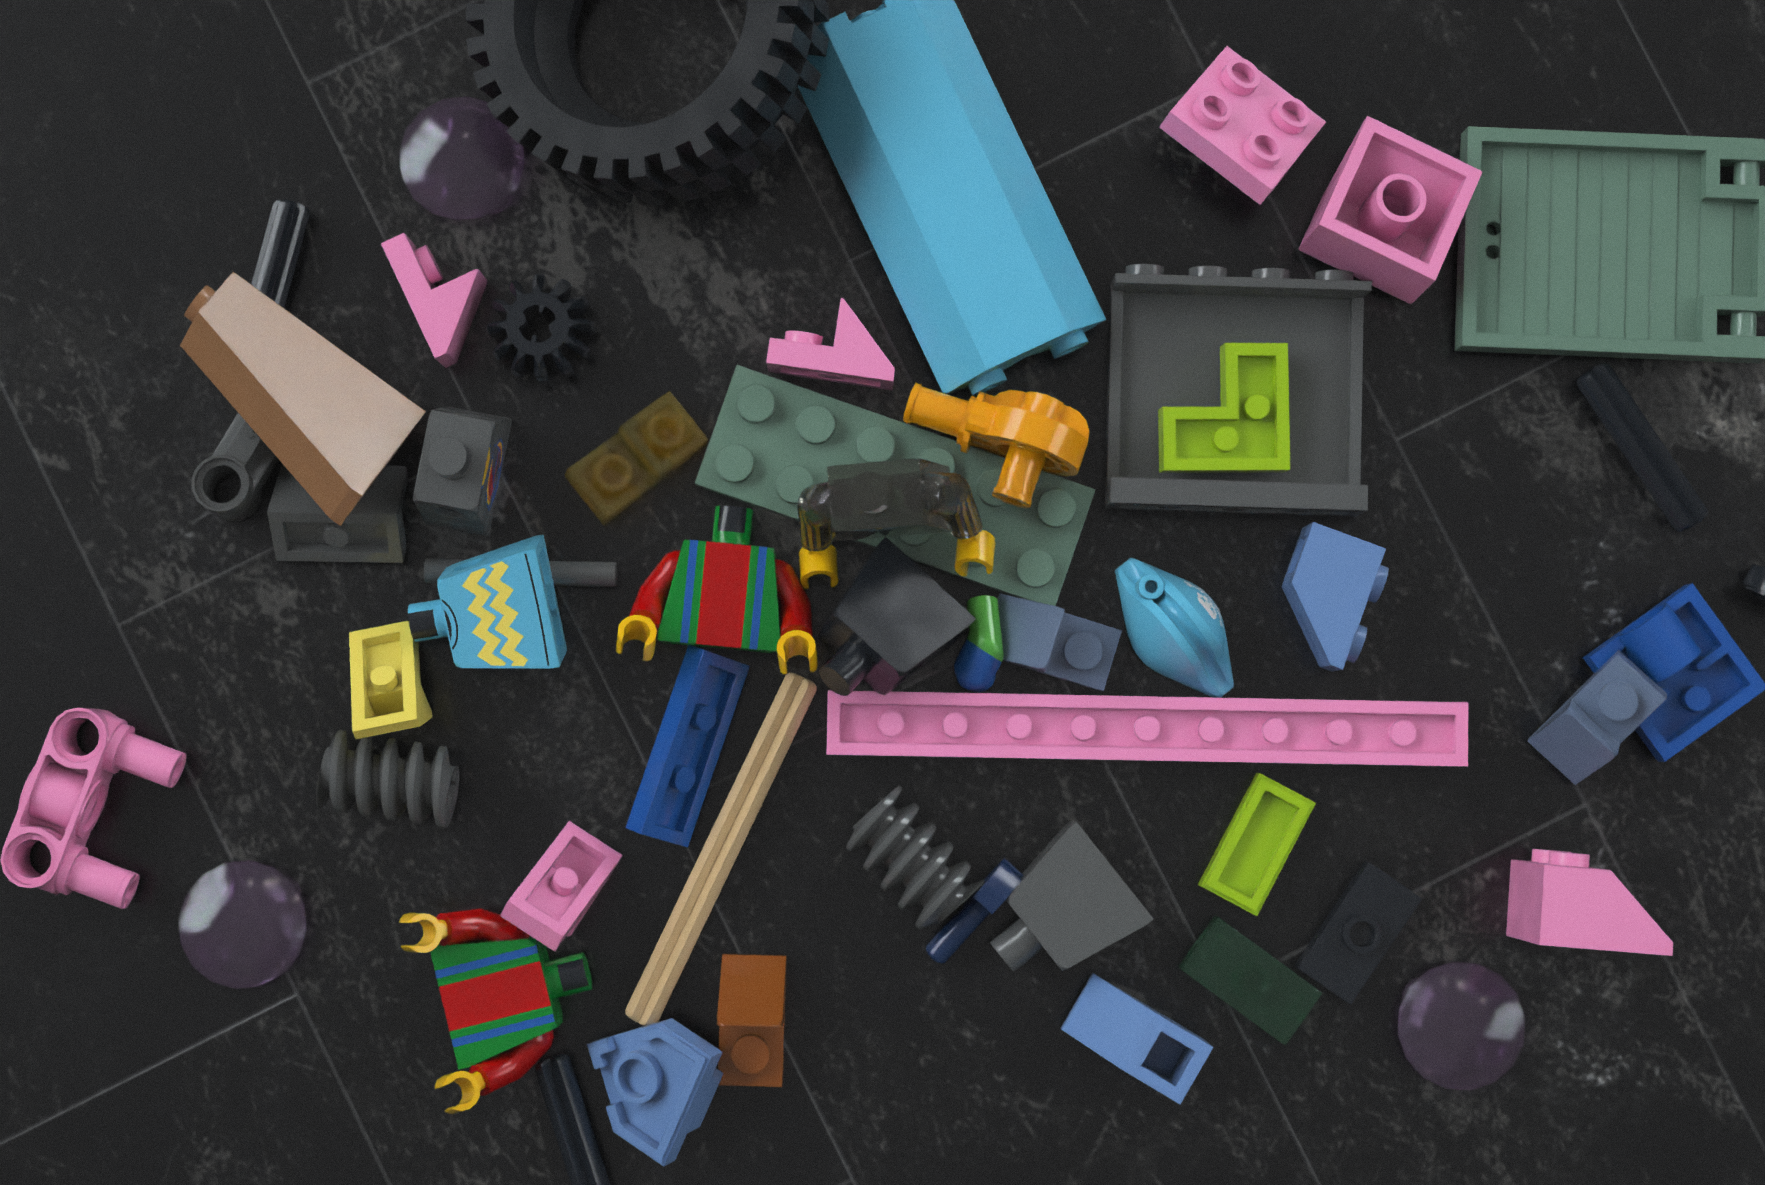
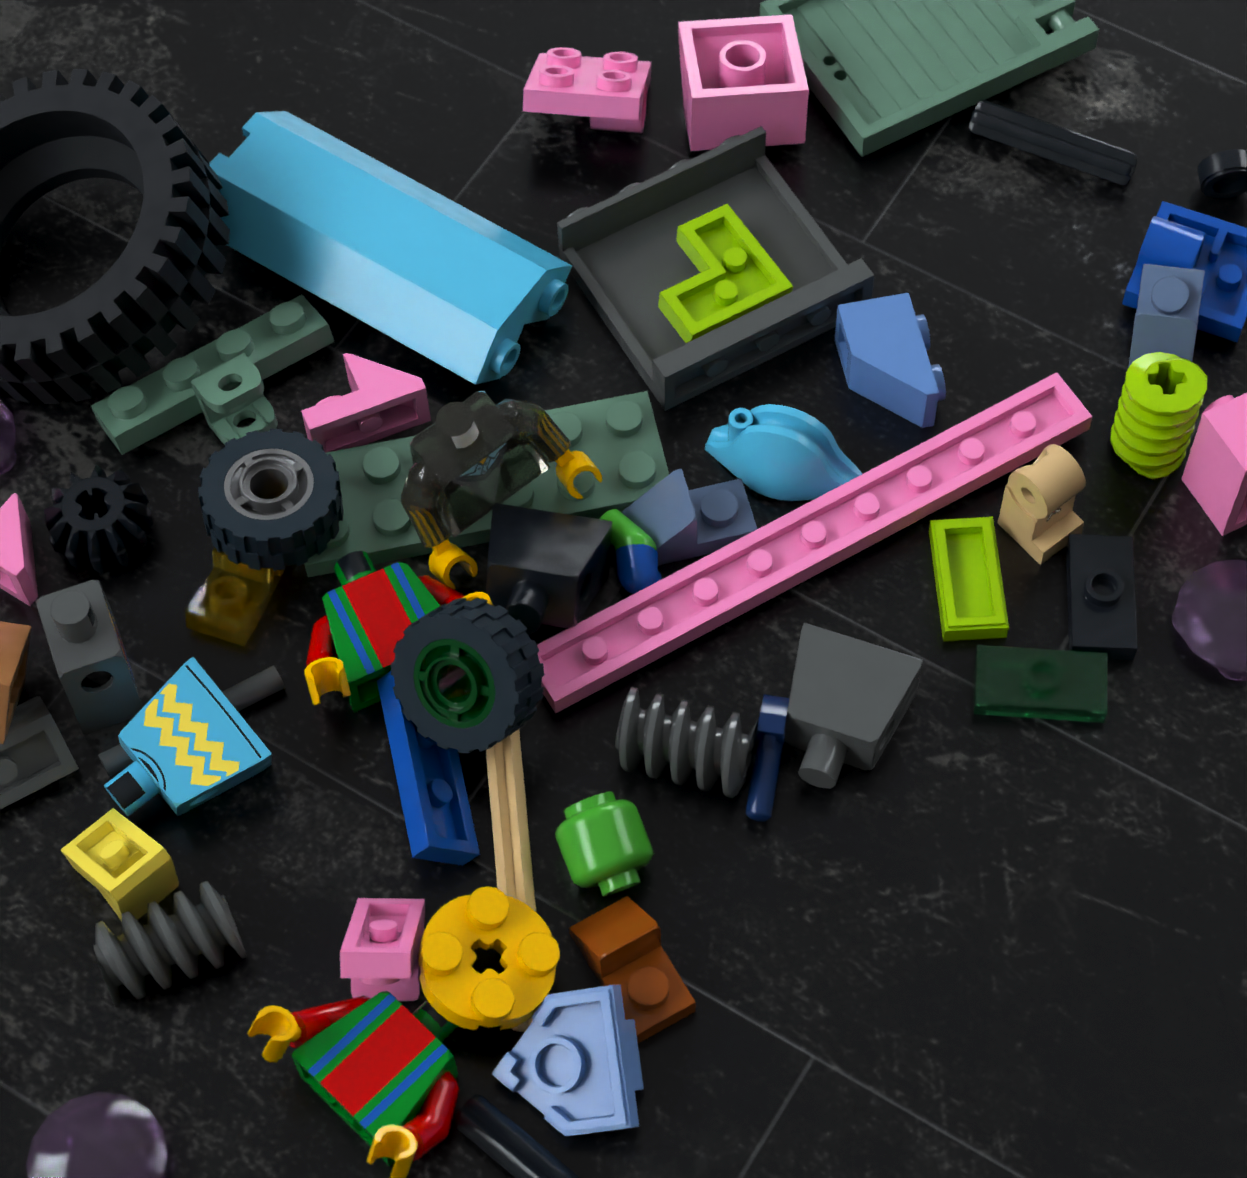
camera: 25 degrees left, 25 degrees down
(596, 946) = (486, 922): none -> yellow plate
(691, 379) = (271, 499): none -> black wheel
(724, 240) = (217, 380): none -> sand green plate
(755, 709) = (494, 655): none -> black wheel
(790, 907) = (604, 843): none -> bright green head
(1023, 427) = (555, 375): light orange pin -> none
(1137, 1038) = (980, 768): medium blue slope -> none
(1362, 829) = (1041, 502): none -> tan leg
(1522, 810) = (1157, 413): none -> lime piece

